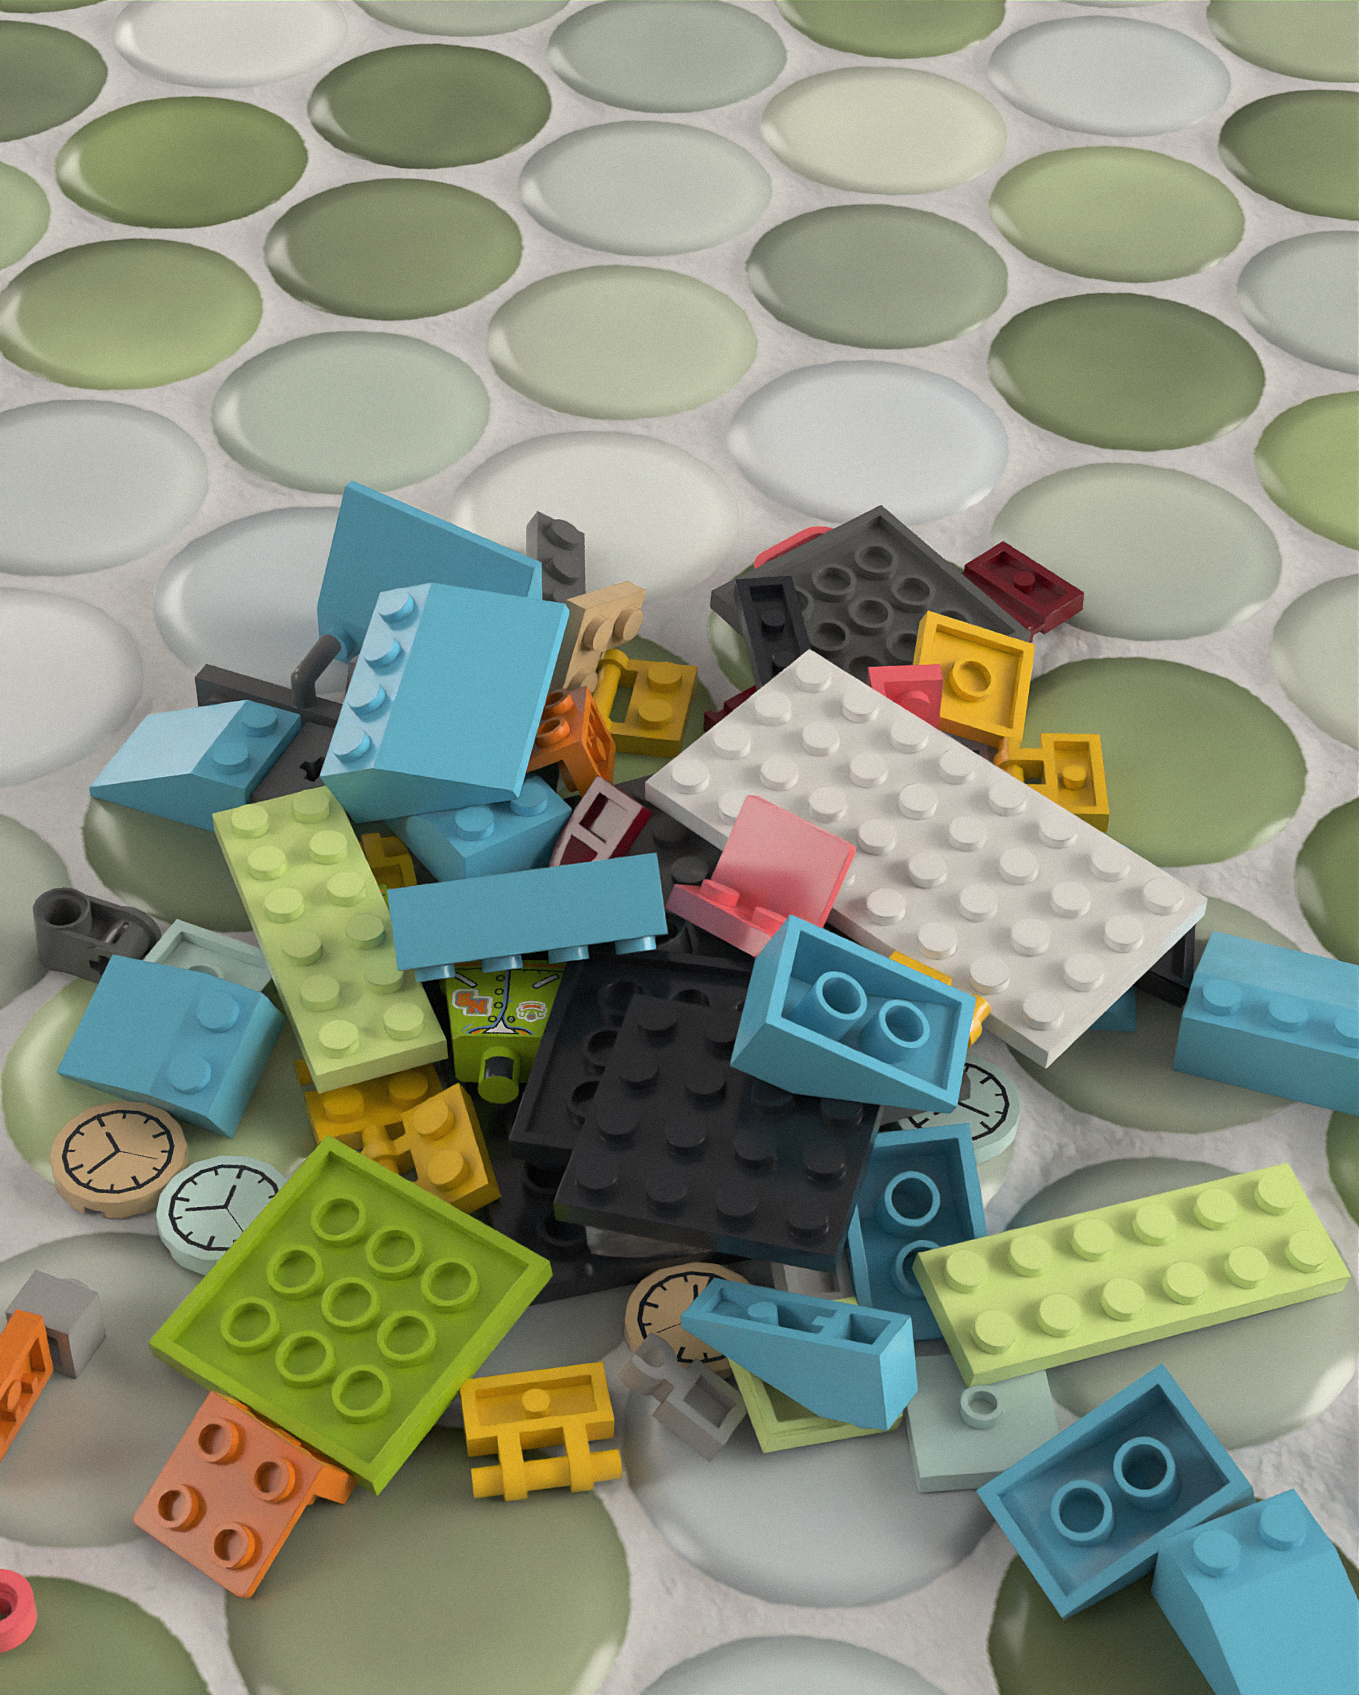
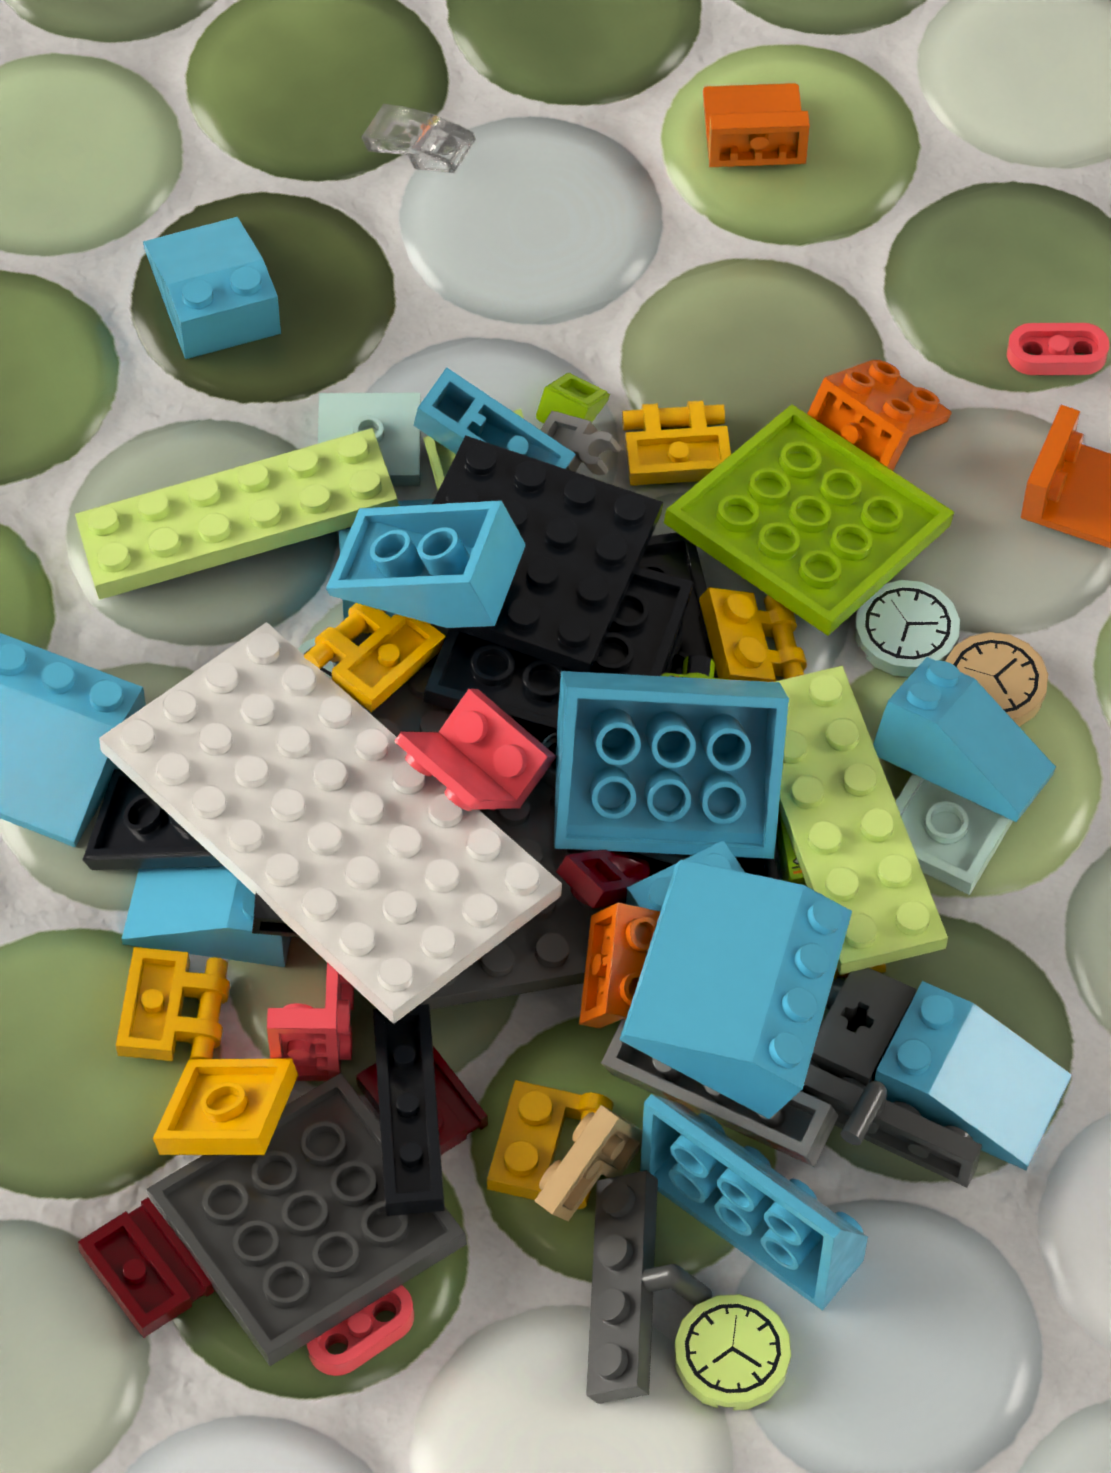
camera: 175 degrees left, 15 degrees up
(70, 1319) = (1022, 532): light grey plate -> none
(83, 932) = (1038, 876): dark grey piece -> none
(693, 1498) = (572, 397): none -> lime slope
(1112, 1487) = (285, 357): medium azure slope -> none

